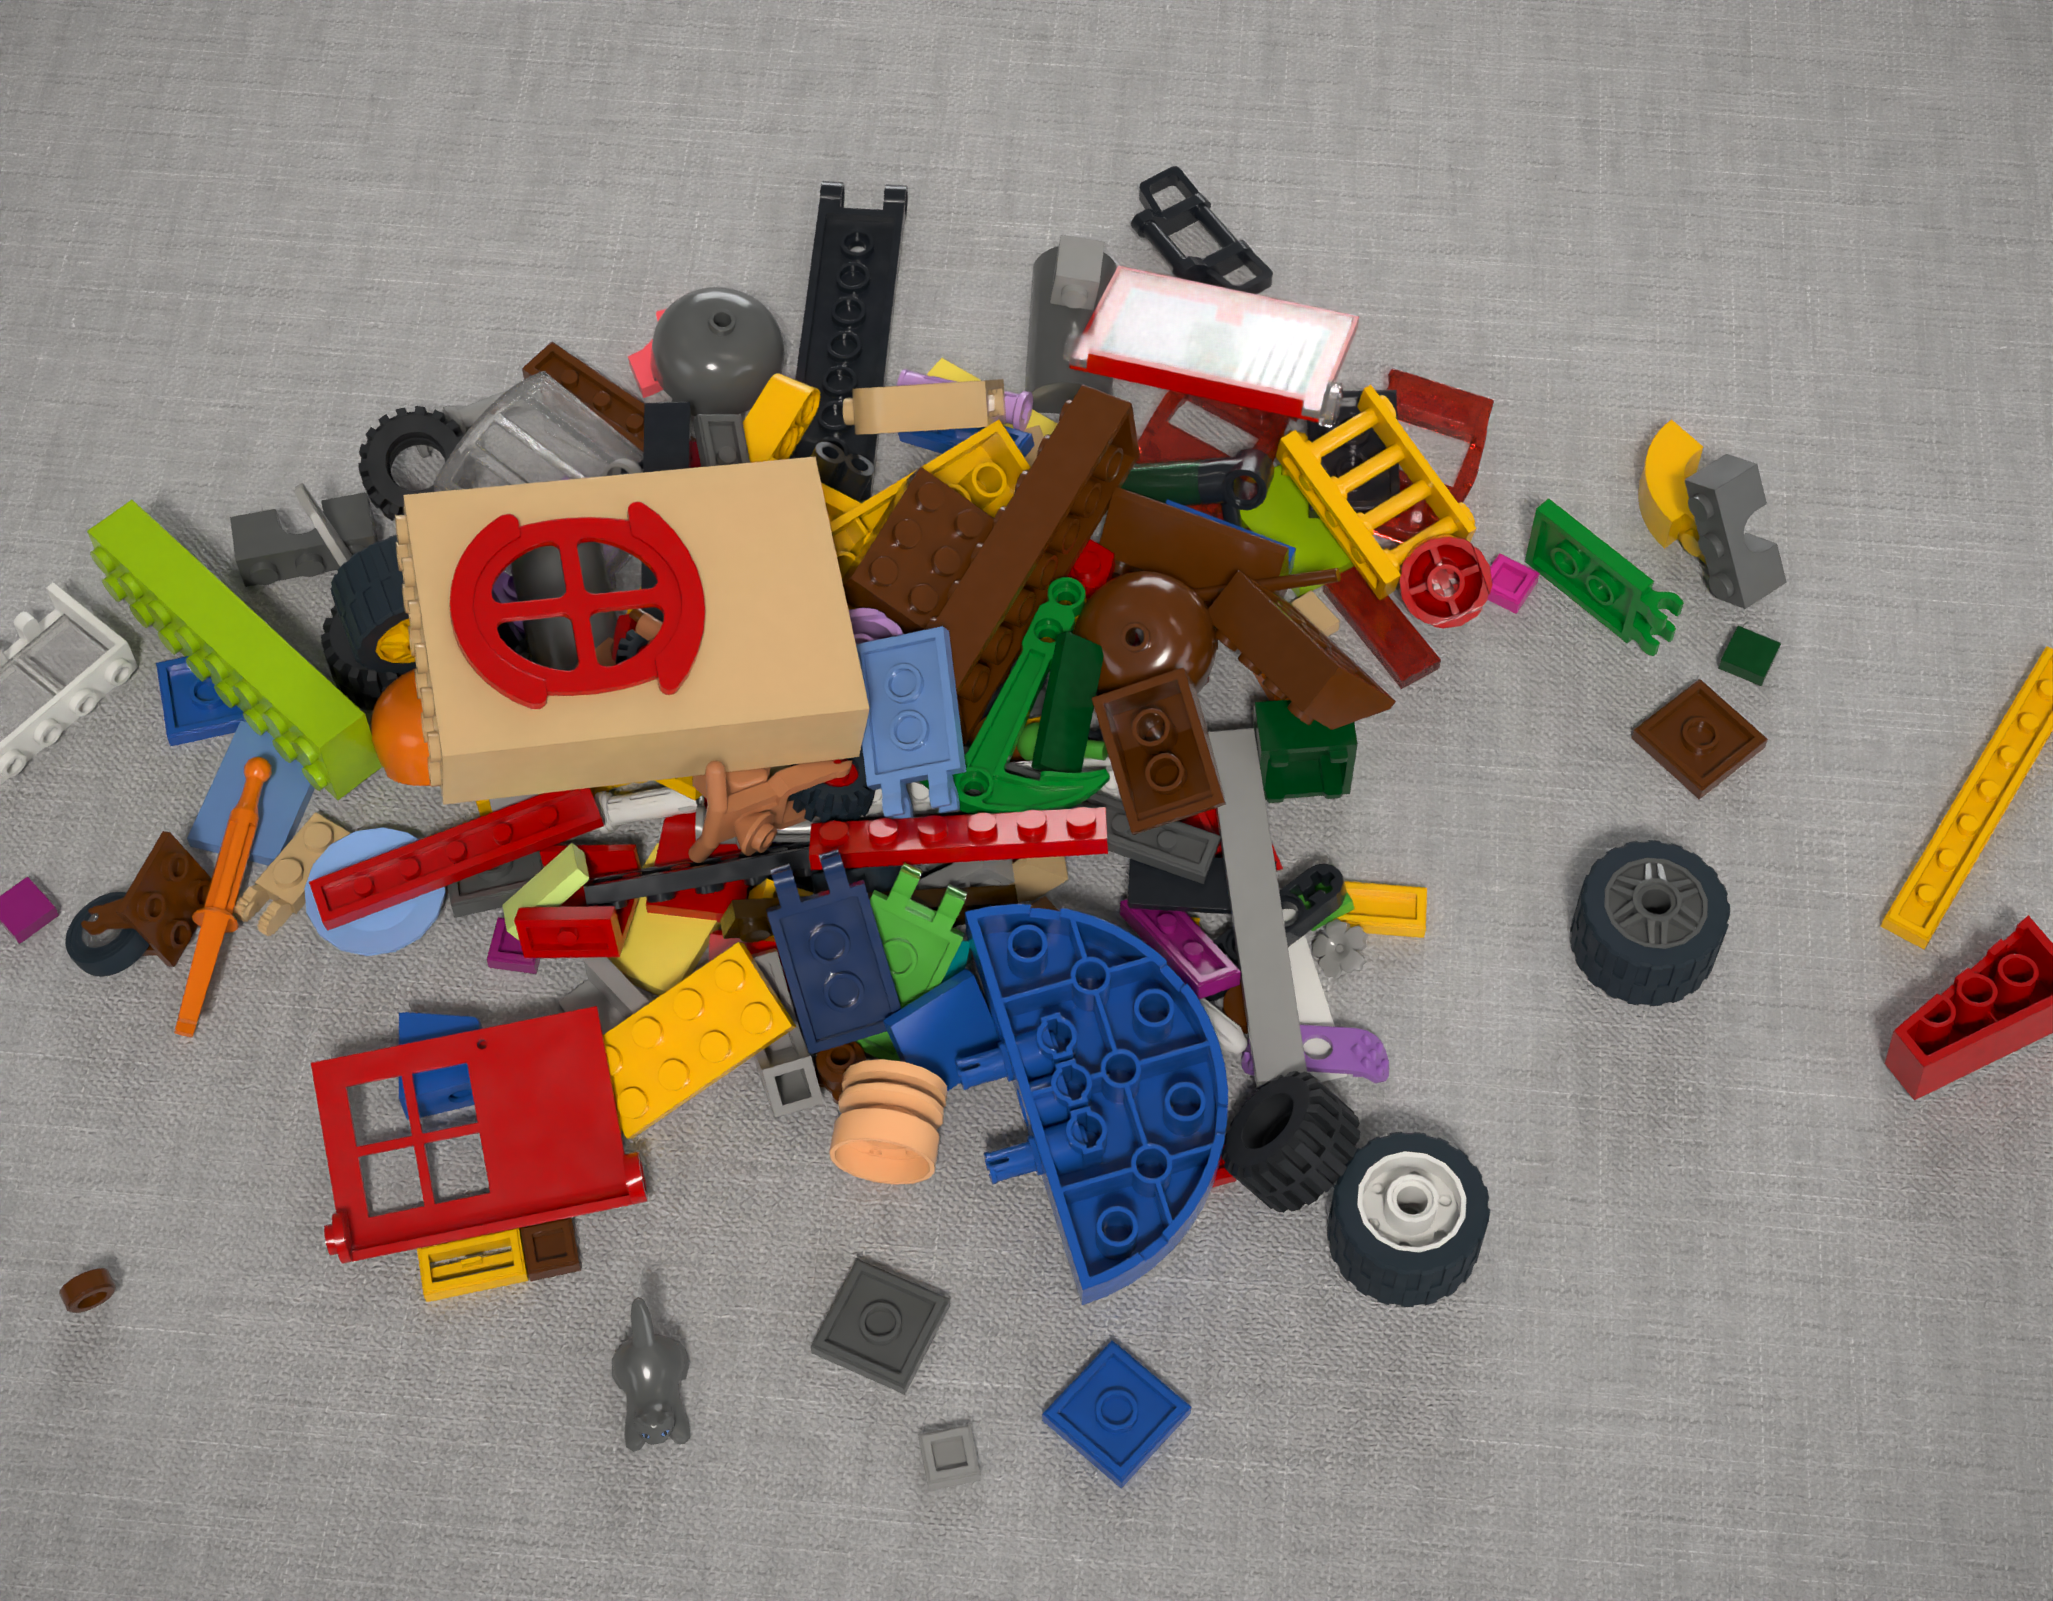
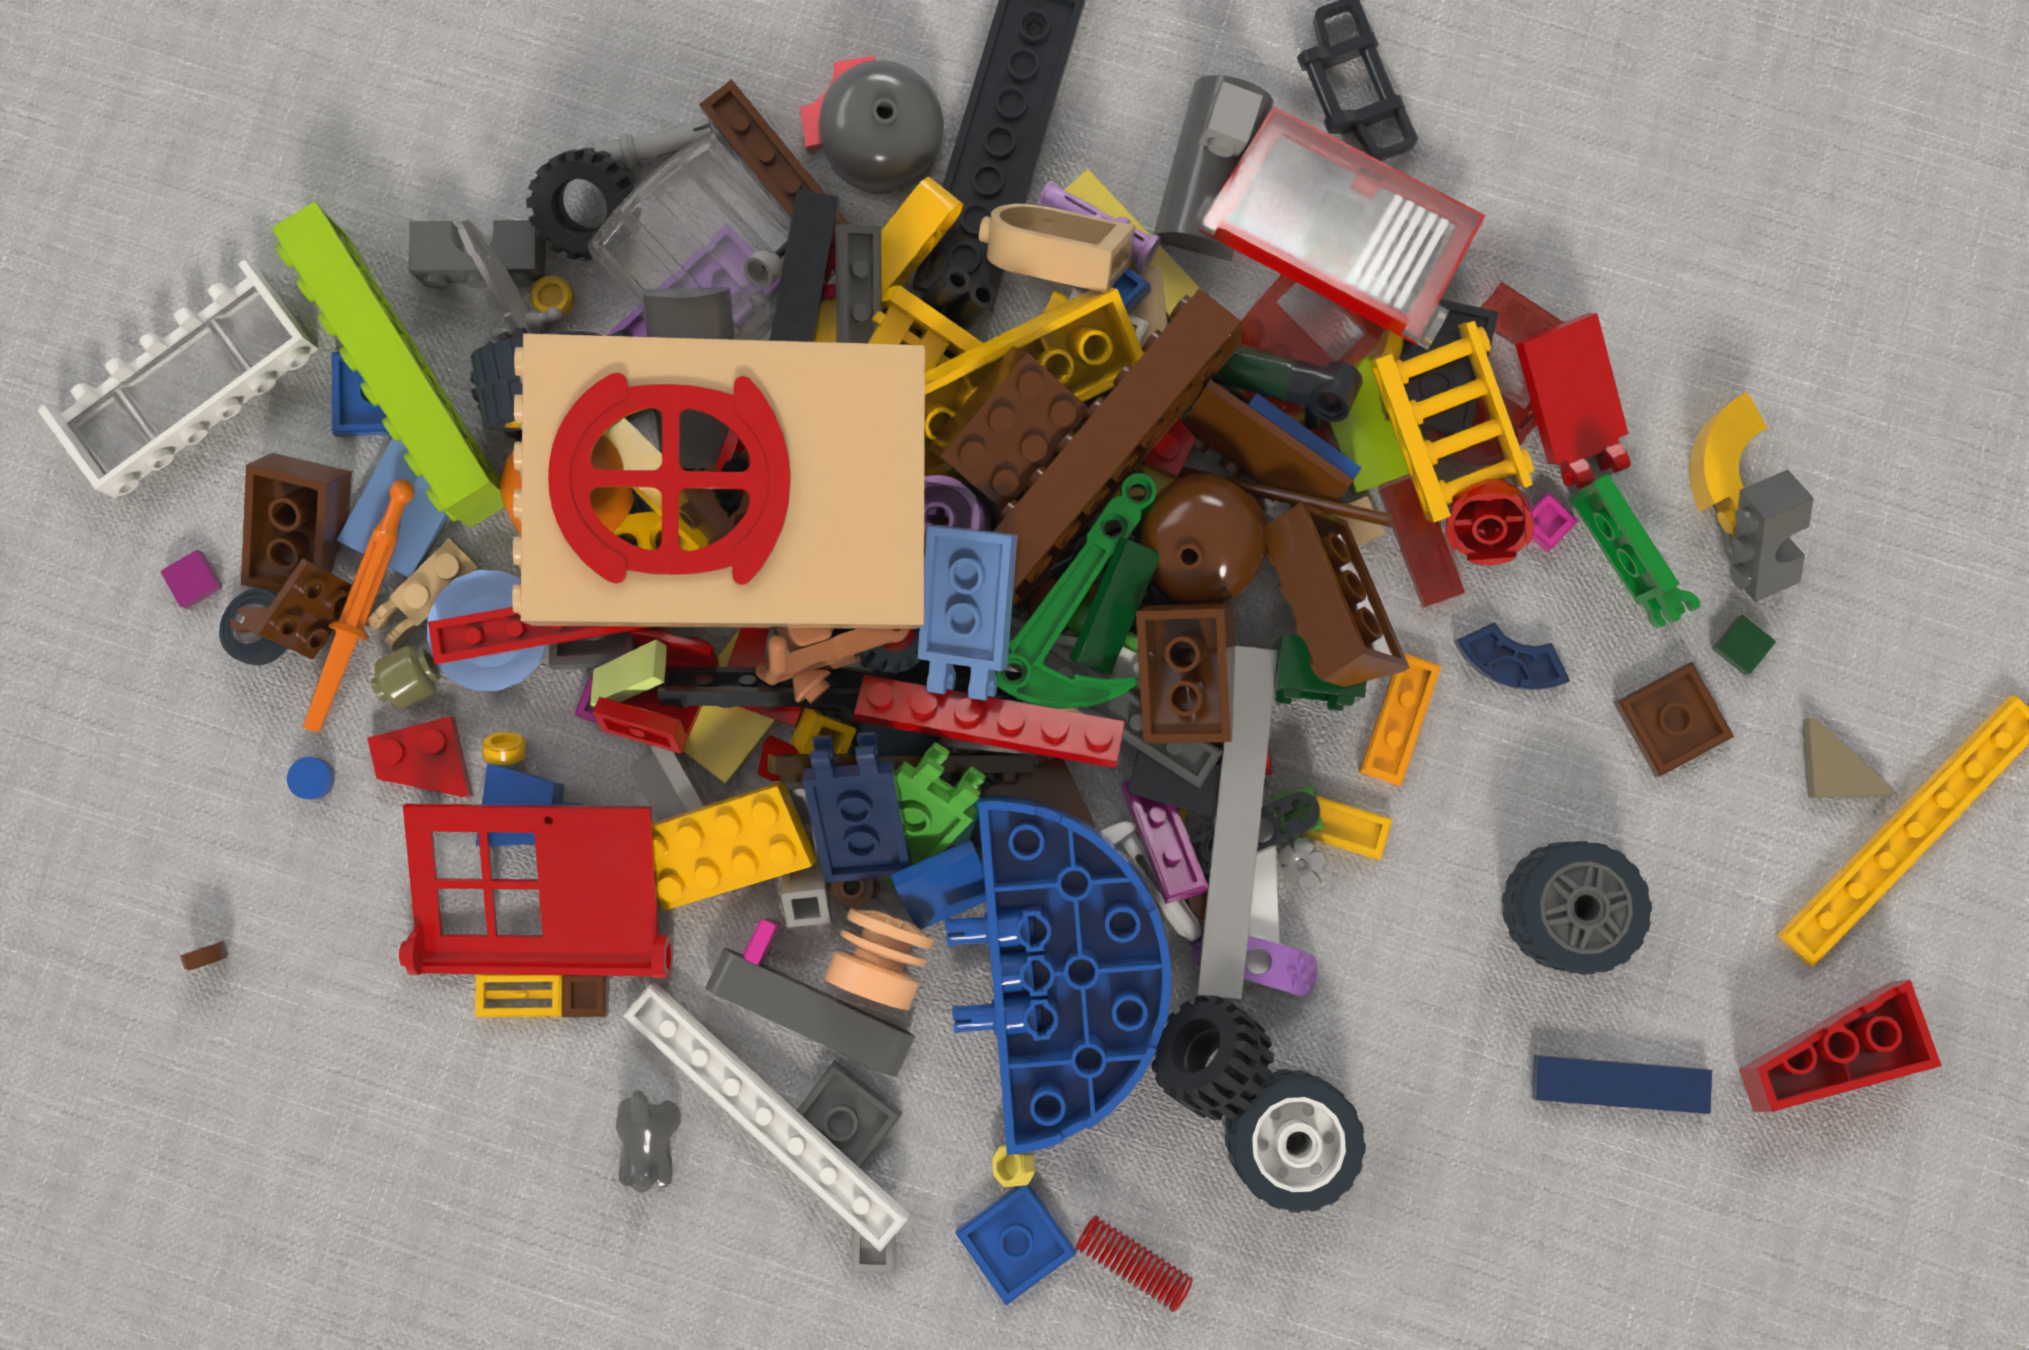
camera: 15 degrees right, 25 degrees up
(125, 814) = (289, 515): none -> reddish brown slope
(189, 1084) = (310, 778): none -> blue tile
(287, 953) = (405, 677): none -> olive head
(311, 1034) = (423, 757): none -> red wing
(414, 1003) = (504, 748): none -> yellow tile
(748, 1143) = (761, 941): none -> dark pink tile
(794, 1330) = (767, 1116): none -> white tile
(819, 1208) = (810, 1012): none -> dark grey beam
(1093, 1323) = (1013, 1169): none -> light yellow tile
(1319, 1427) = (1174, 1305): none -> red piece
(1407, 794) = (1399, 721): none -> light orange tile
(1496, 453) = (1575, 398): none -> red tile
(1510, 718) = (1510, 662): none -> dark blue tile
(1760, 1103) = (1622, 1084): none -> dark blue tile
(1888, 753) = (1836, 769): none -> dark tan tile

